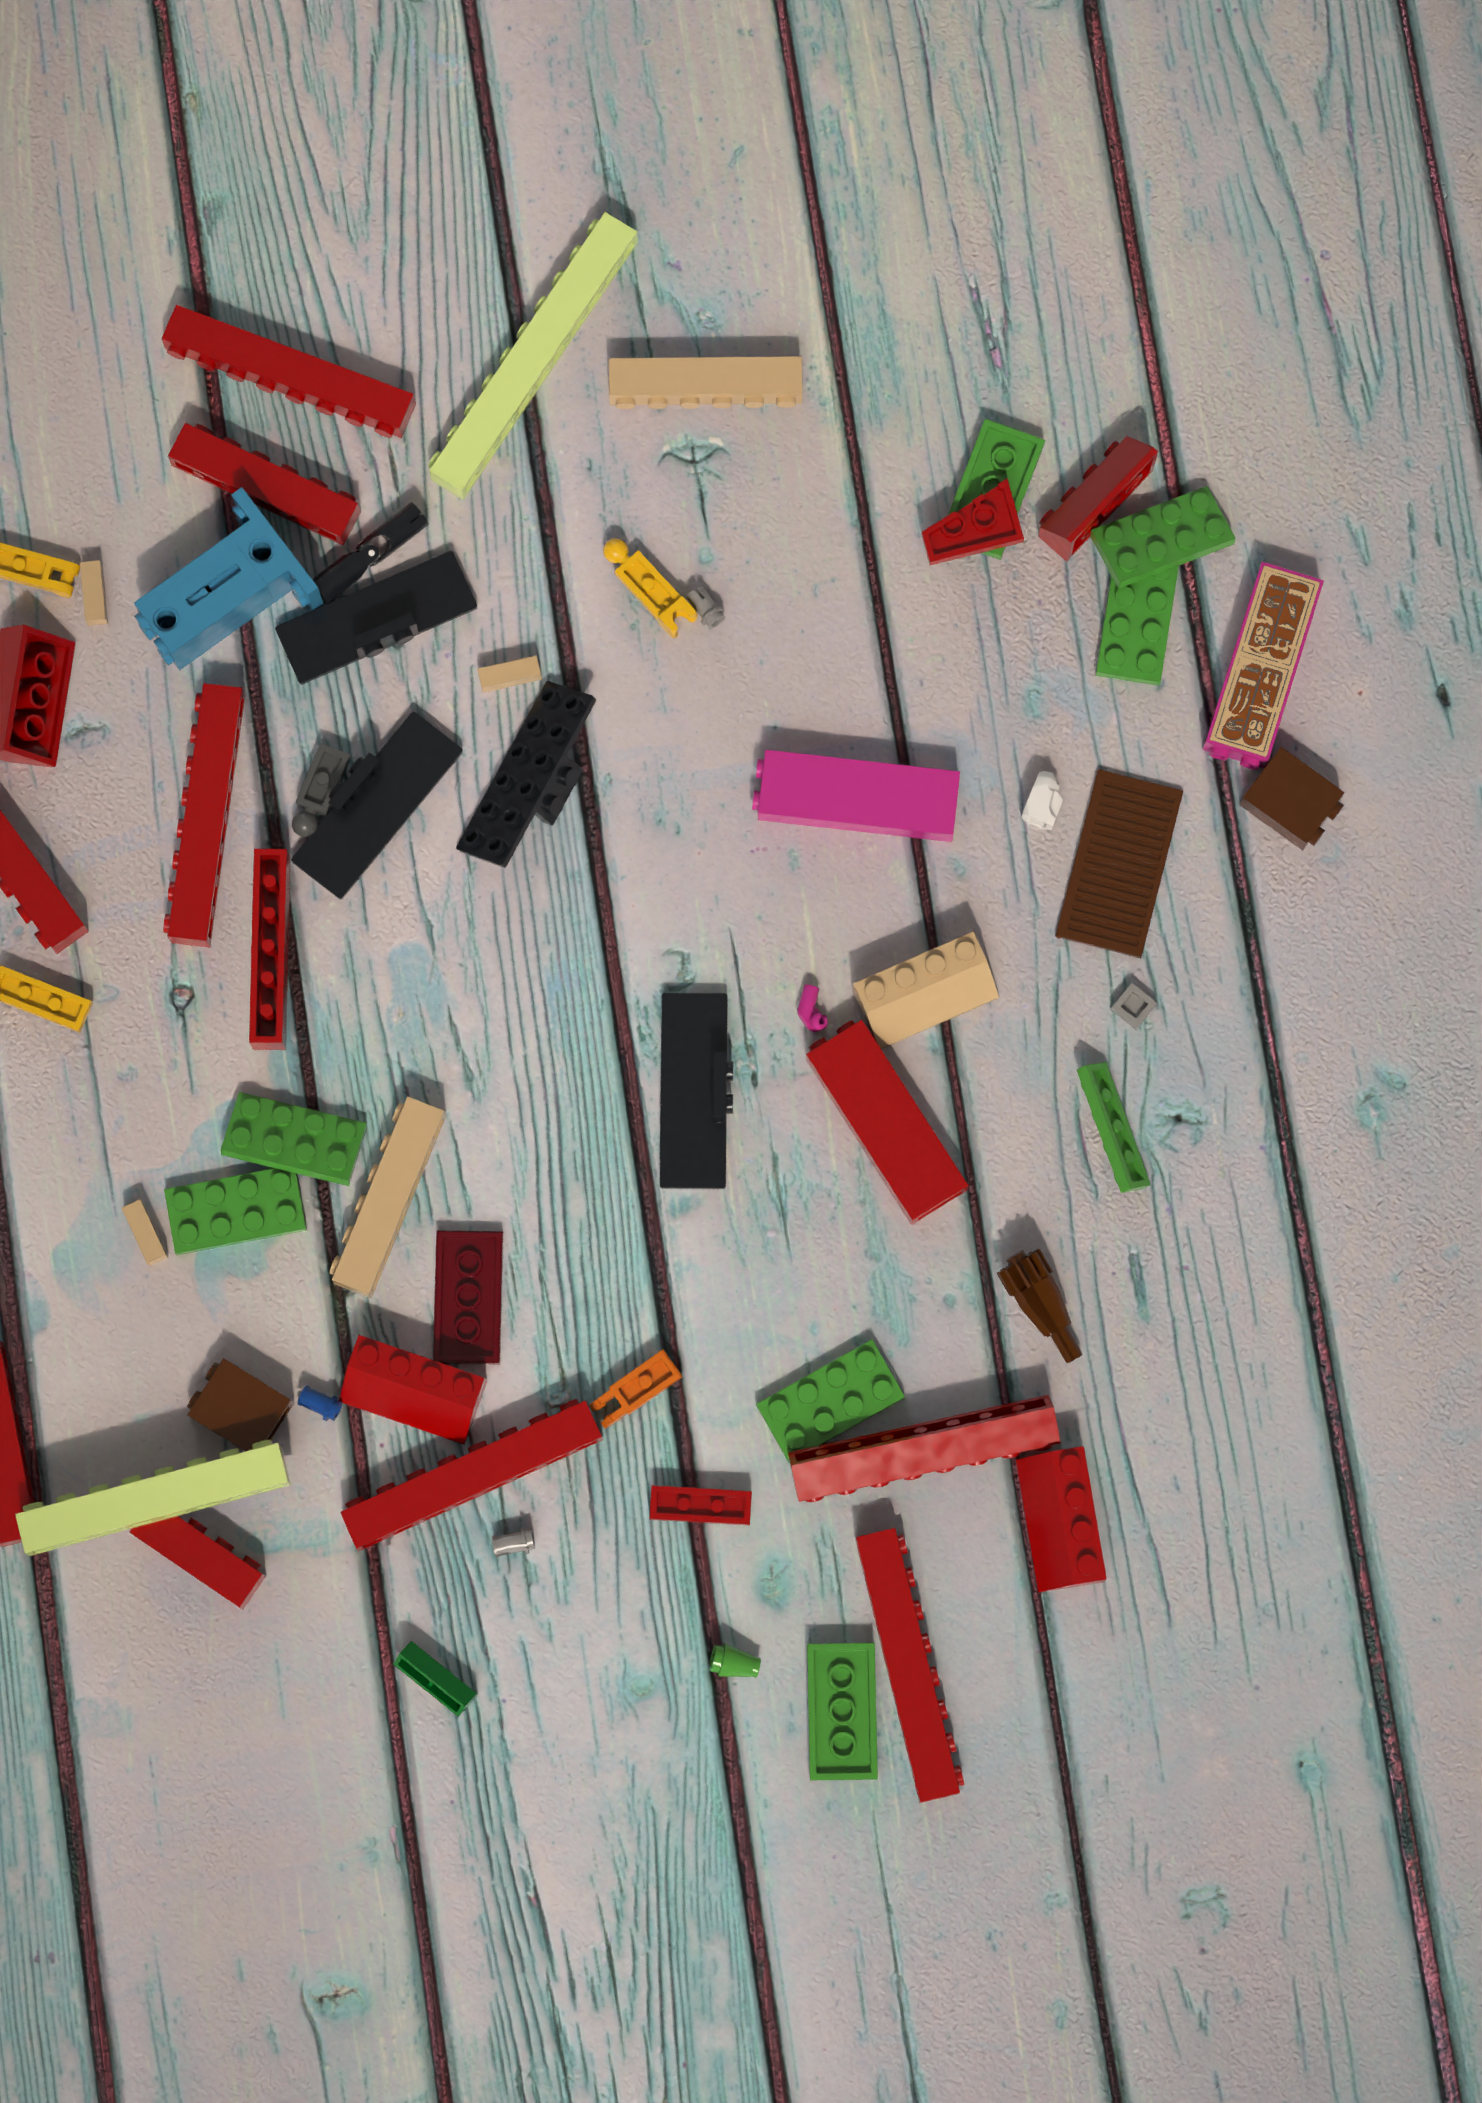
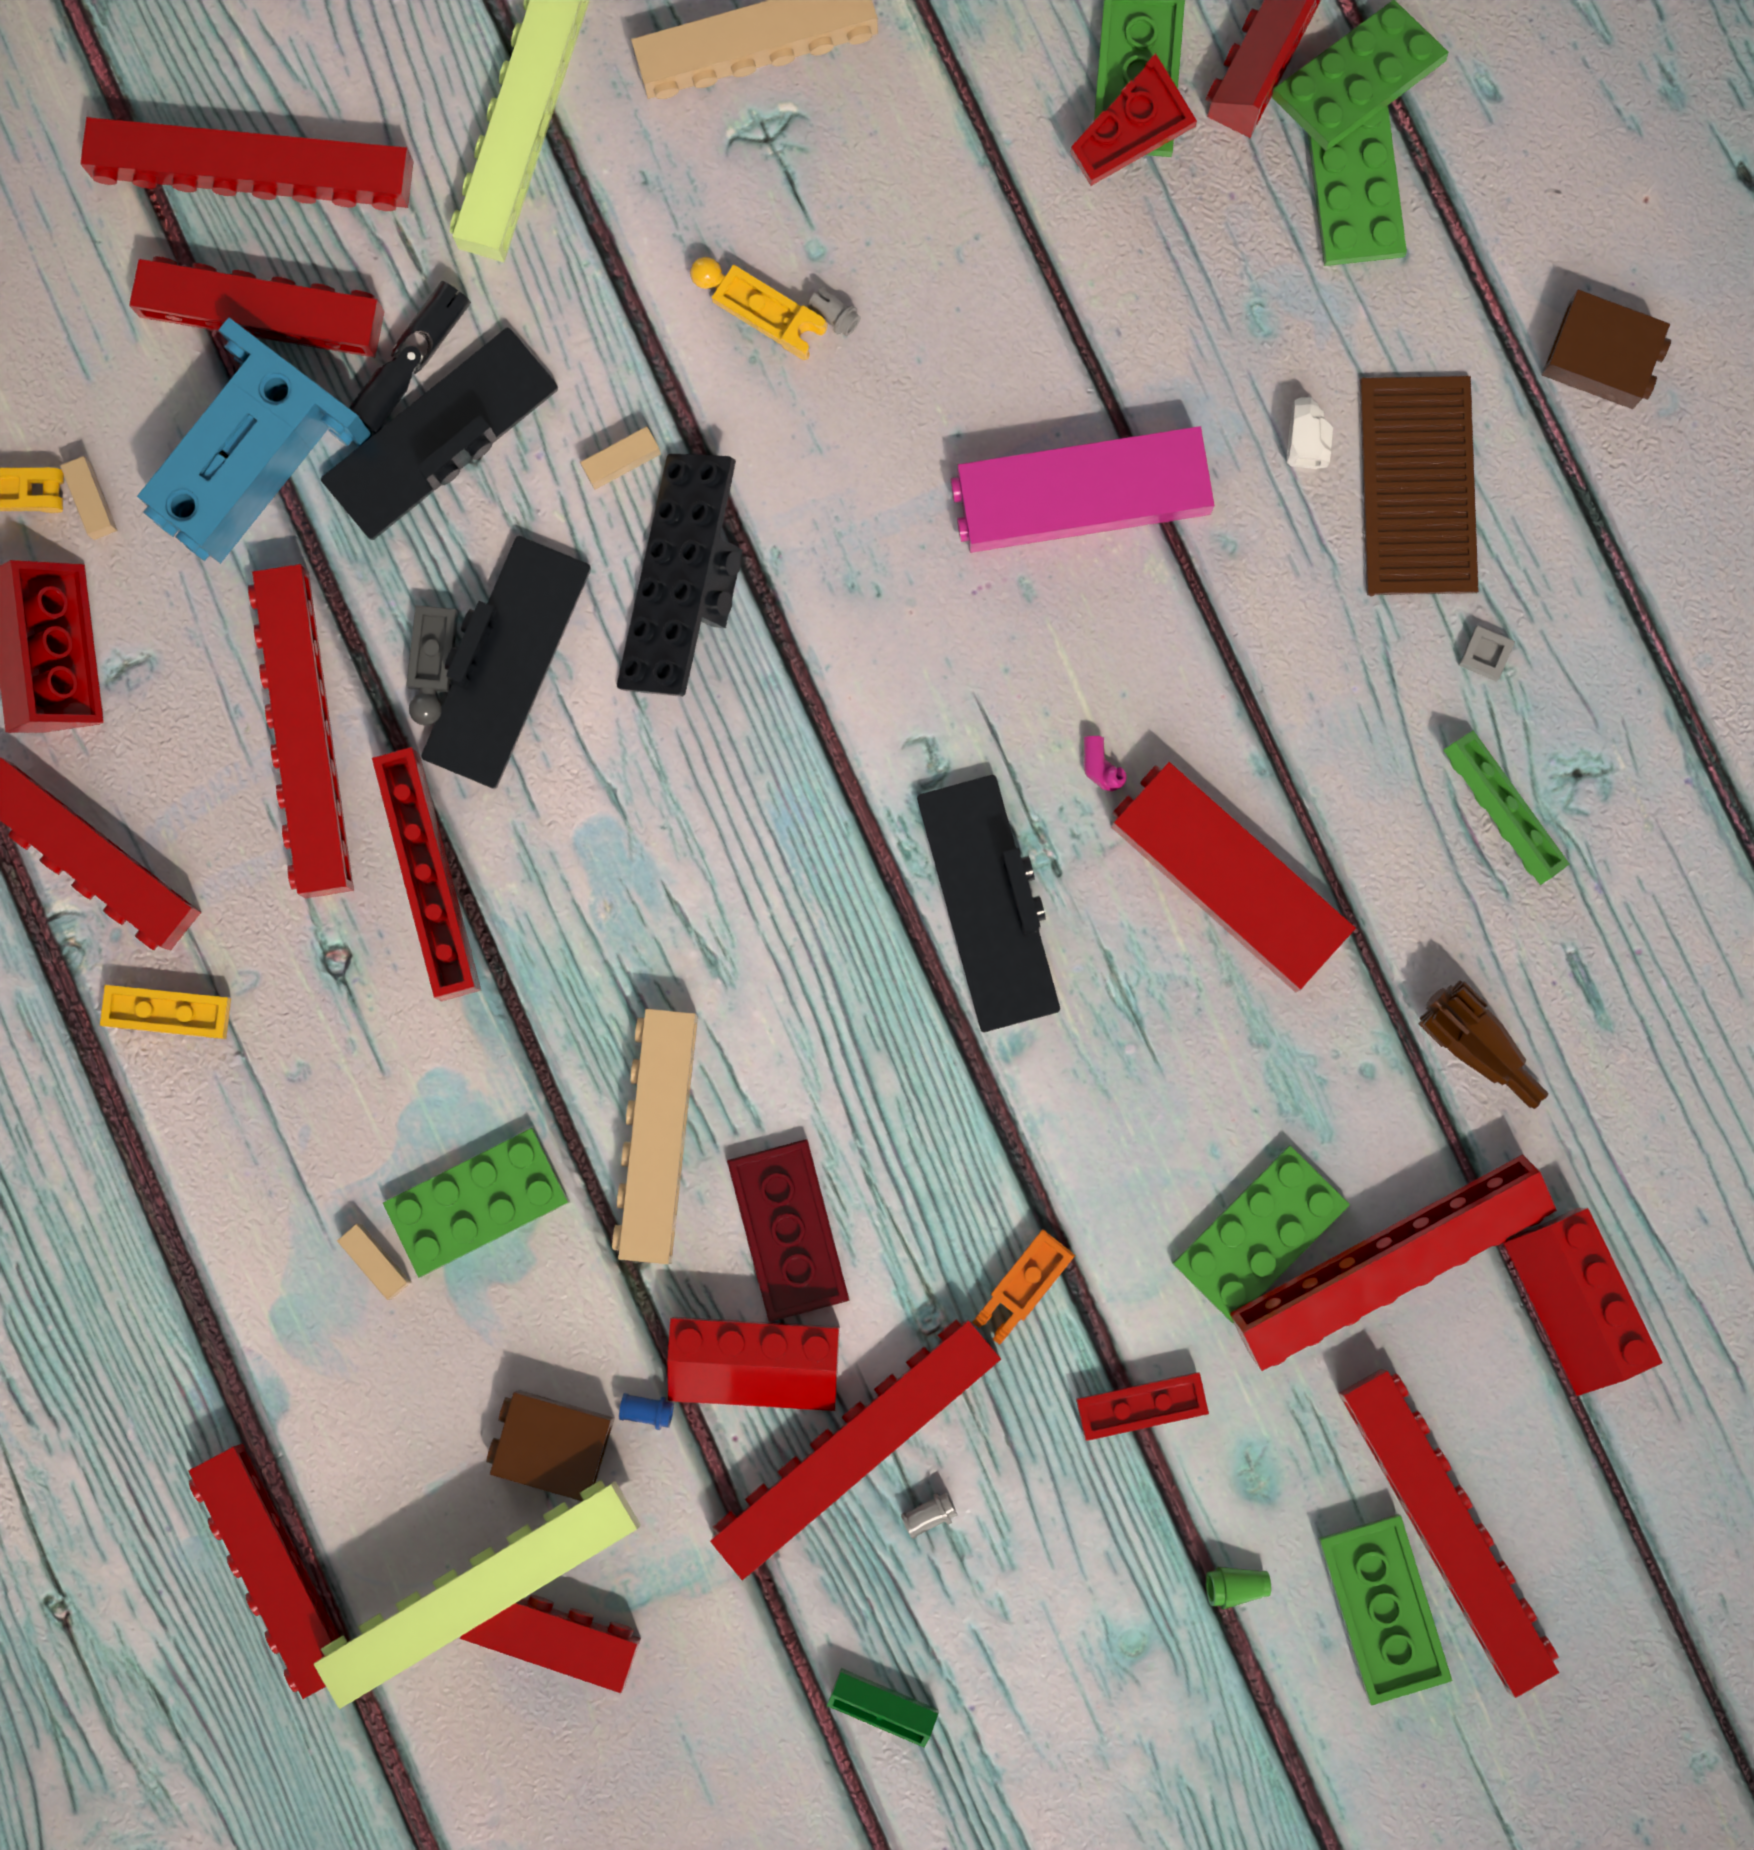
camera: 10 degrees left, 5 degrees up
(293, 1139) = (522, 1097): bright green plate -> none
(925, 990) = (1234, 703): tan slope -> none
(1263, 666) = (1524, 198): brick -> none

